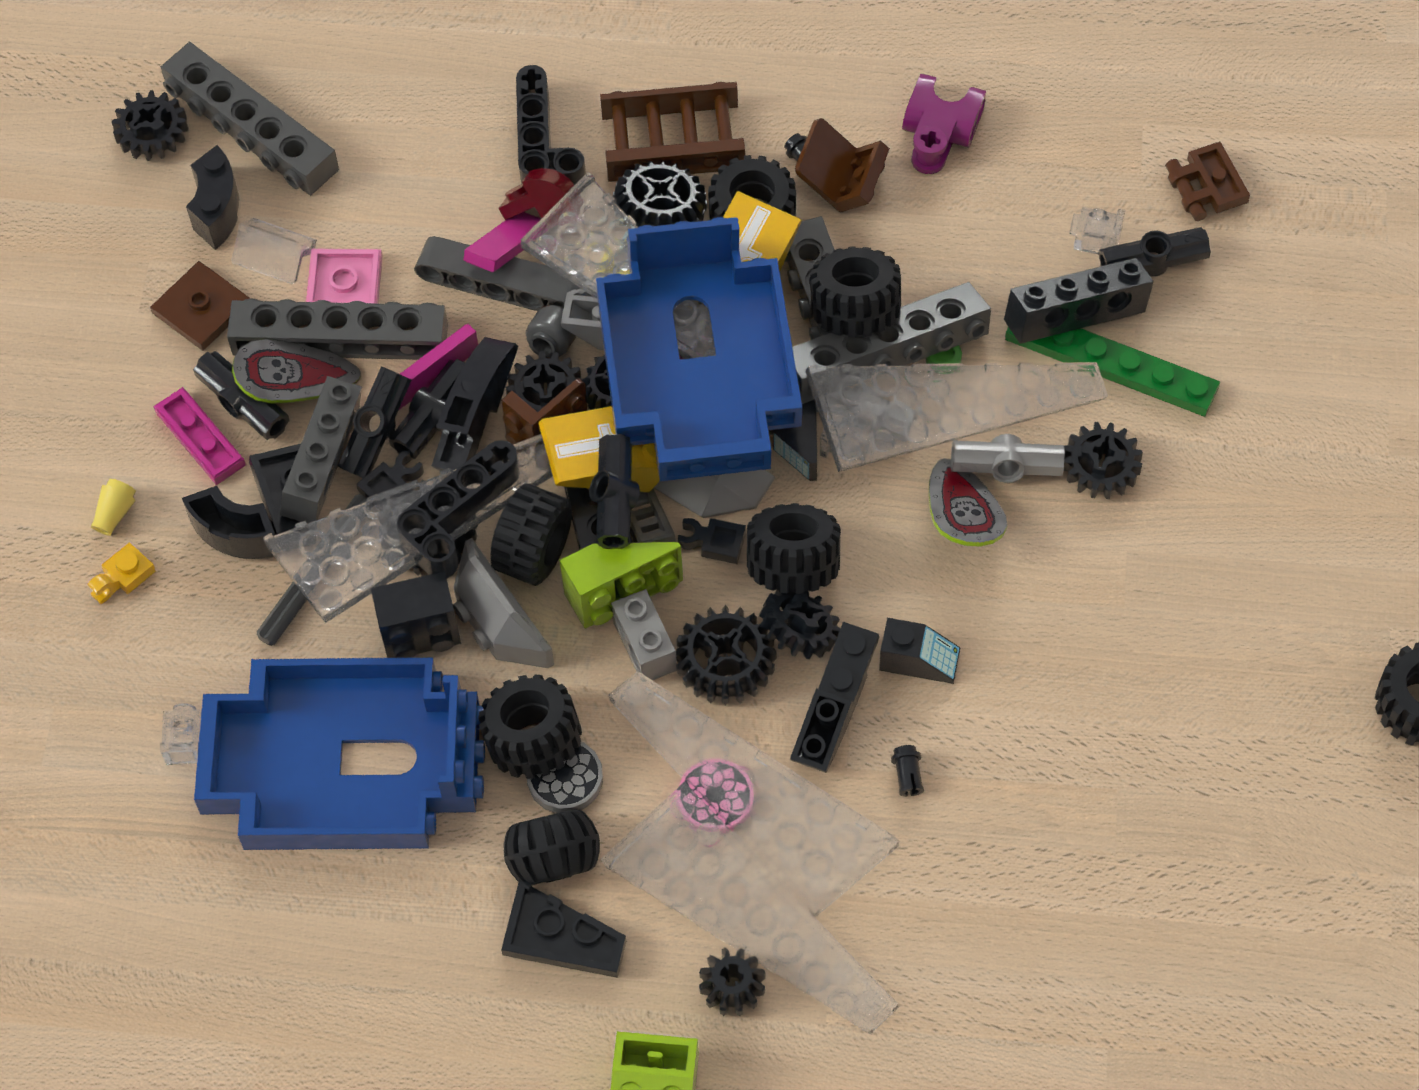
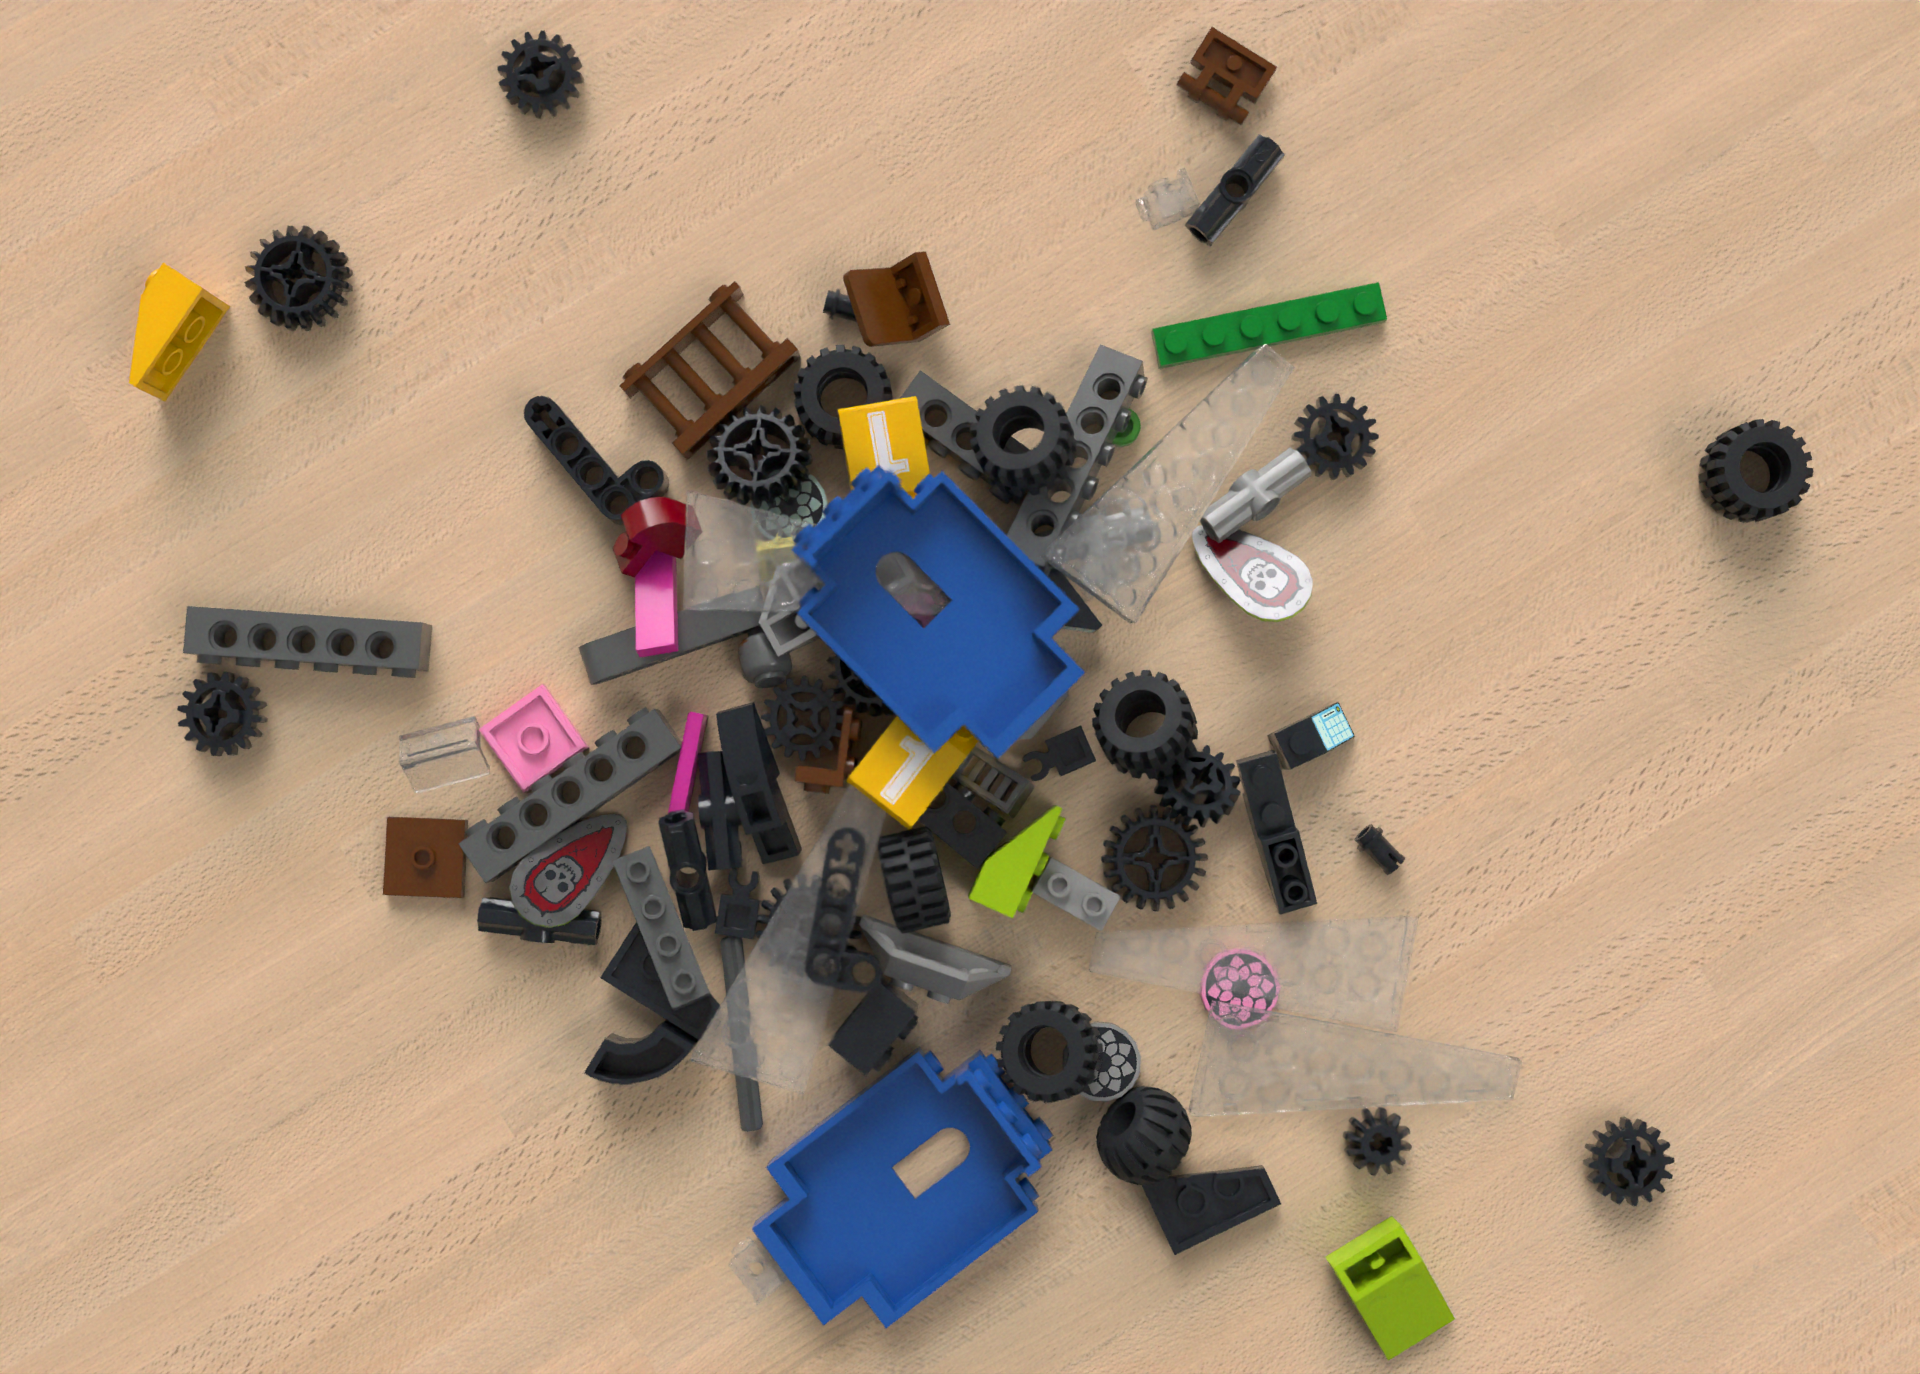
camera: 40 degrees left, 25 degrees up
(112, 505) = (517, 1107): light yellow cone -> none
(123, 570) = (577, 1155): yellow plate -> none
(199, 436) = (533, 982): dark pink tile -> none
(216, 199) = (351, 744): black brick -> none
(614, 491) = (972, 805): black piece -> none
(940, 123) = (945, 186): magenta piece -> none
(1078, 300) = (1211, 295): black brick -> none

